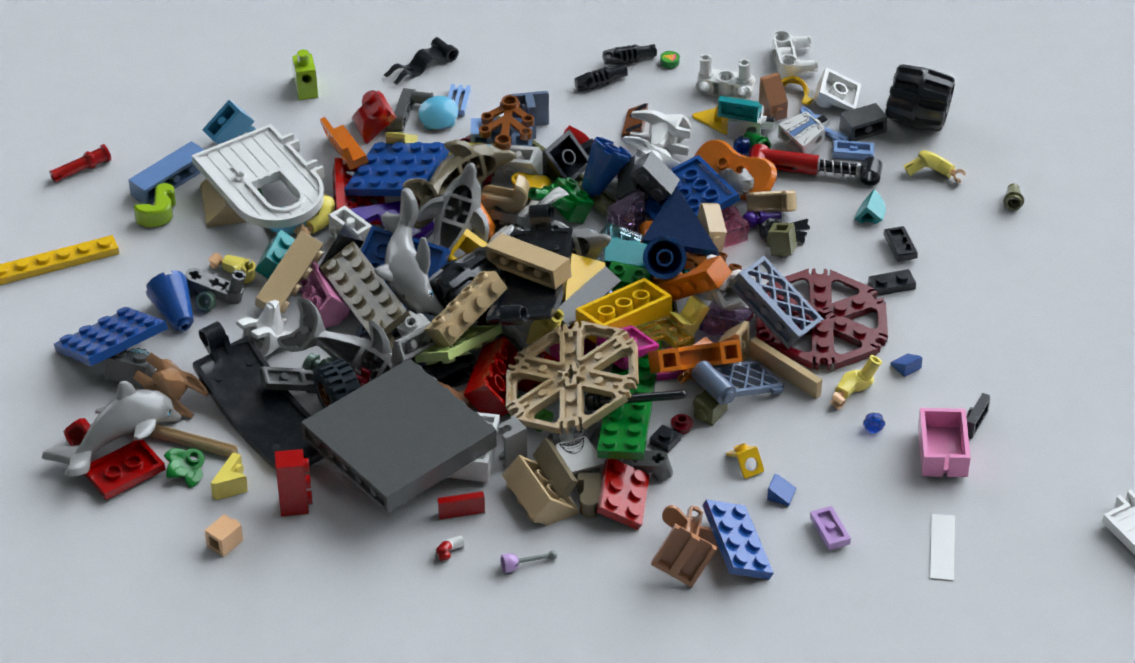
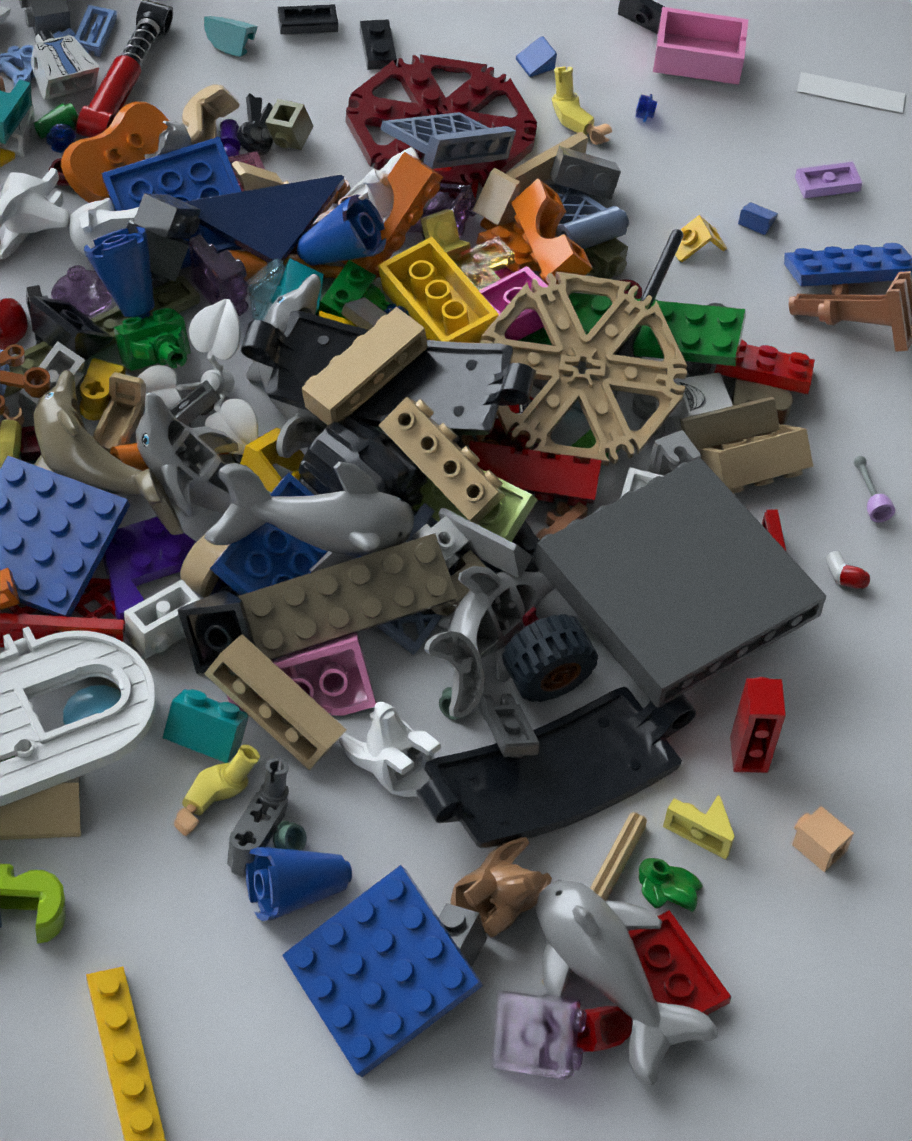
camera: 90 degrees left, 10 degrees up
(71, 406) = (538, 1034): none -> clear purple plate
(781, 384) = (585, 173): none -> dark grey brick

